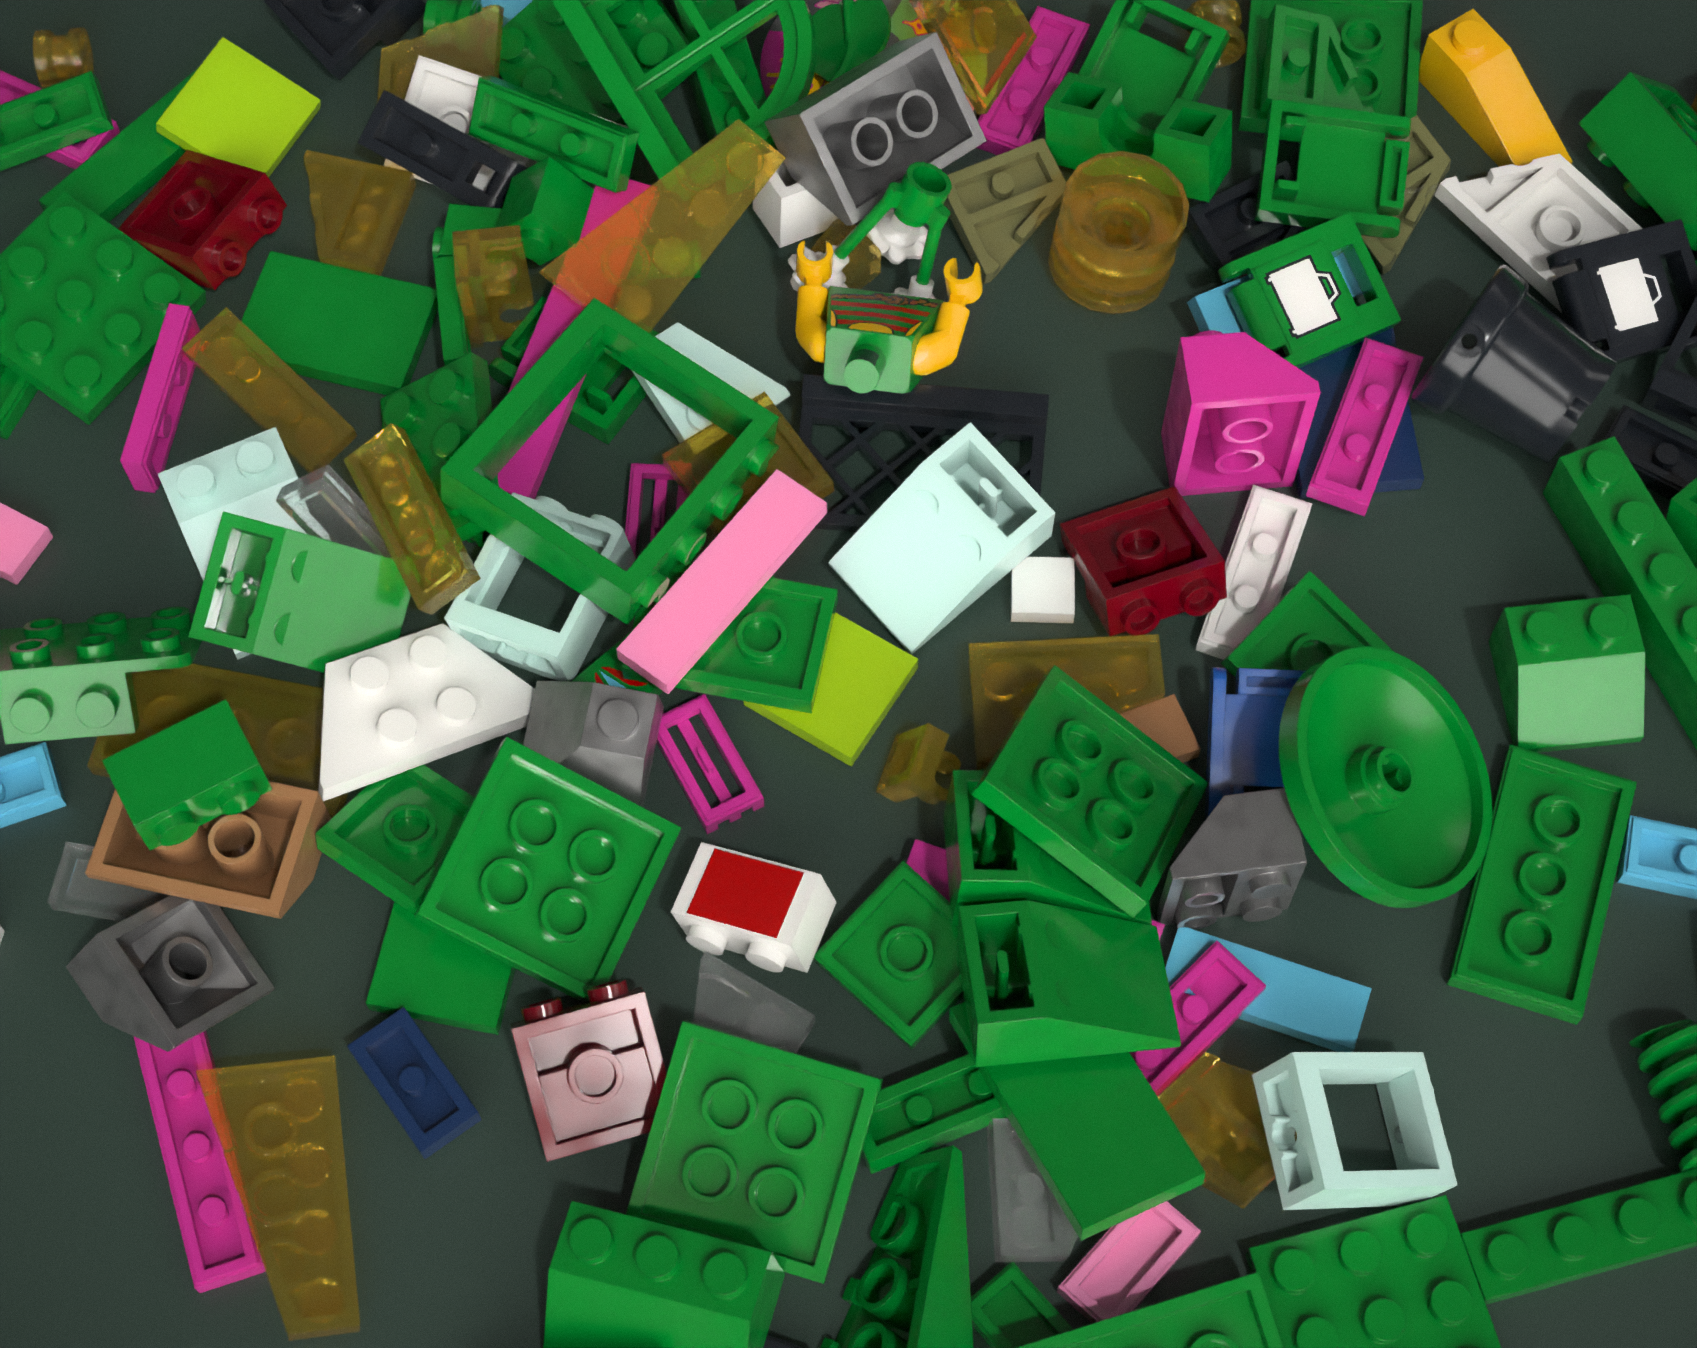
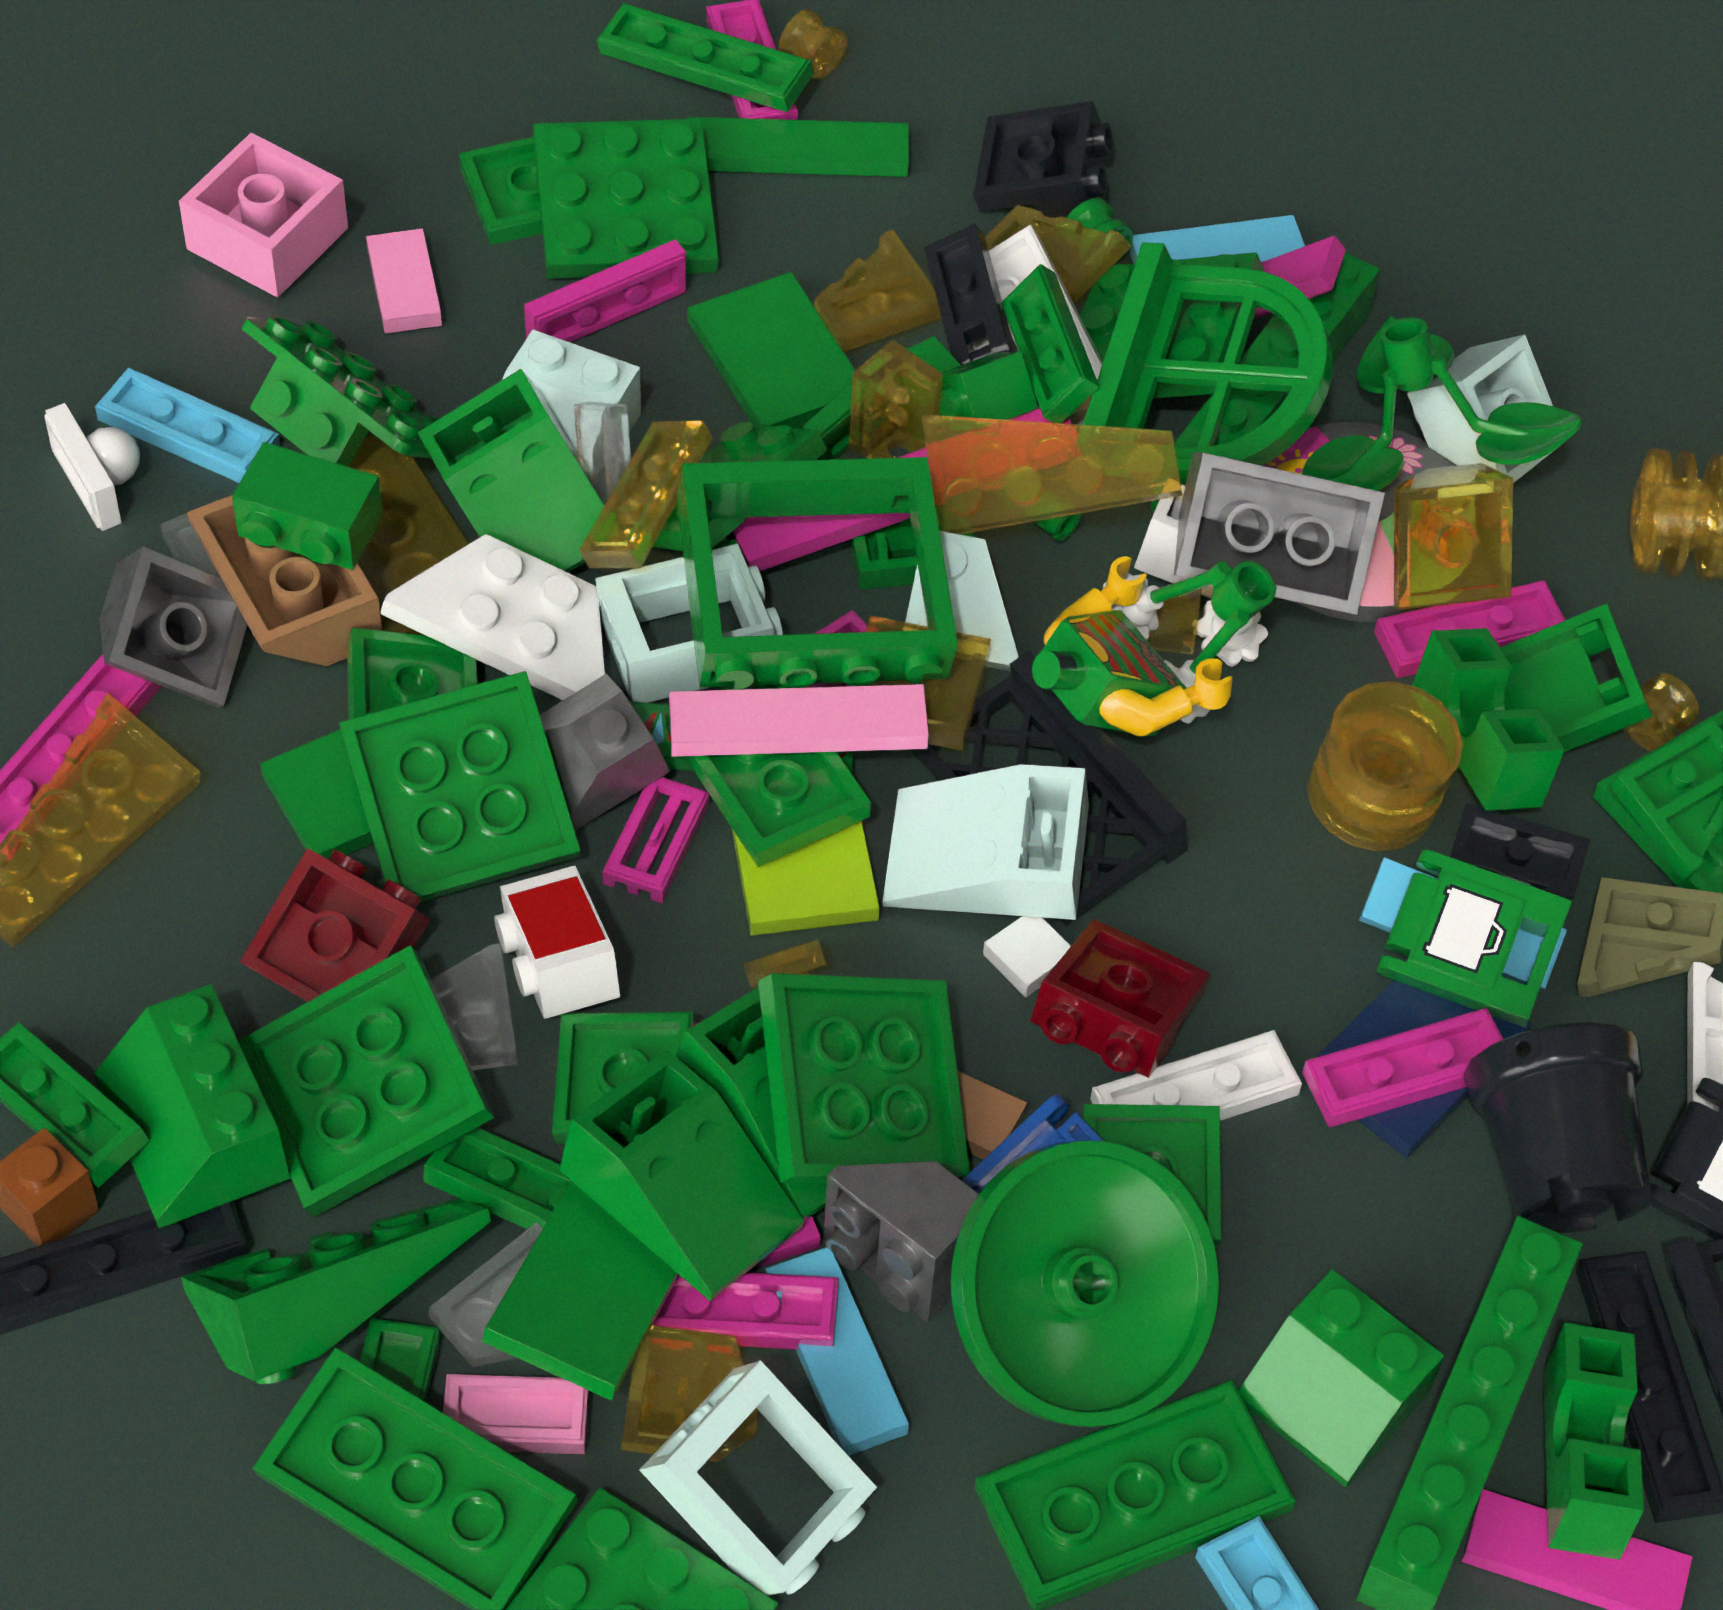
camera: 45 degrees right, 10 degrees down
(206, 217) = (773, 215): dark red plate -> none
(238, 110) = (877, 172): lime tile -> none
(269, 391) = (673, 347): clear yellow plate -> none
(414, 1083) = (225, 837): dark blue plate -> none
(1003, 203) = (1322, 672): olive wing -> none
(1004, 675) = (988, 1033): clear yellow wing -> none
(1235, 415) = (1284, 945): dark pink slope -> none
(1339, 167) = (1621, 883): green container -> none

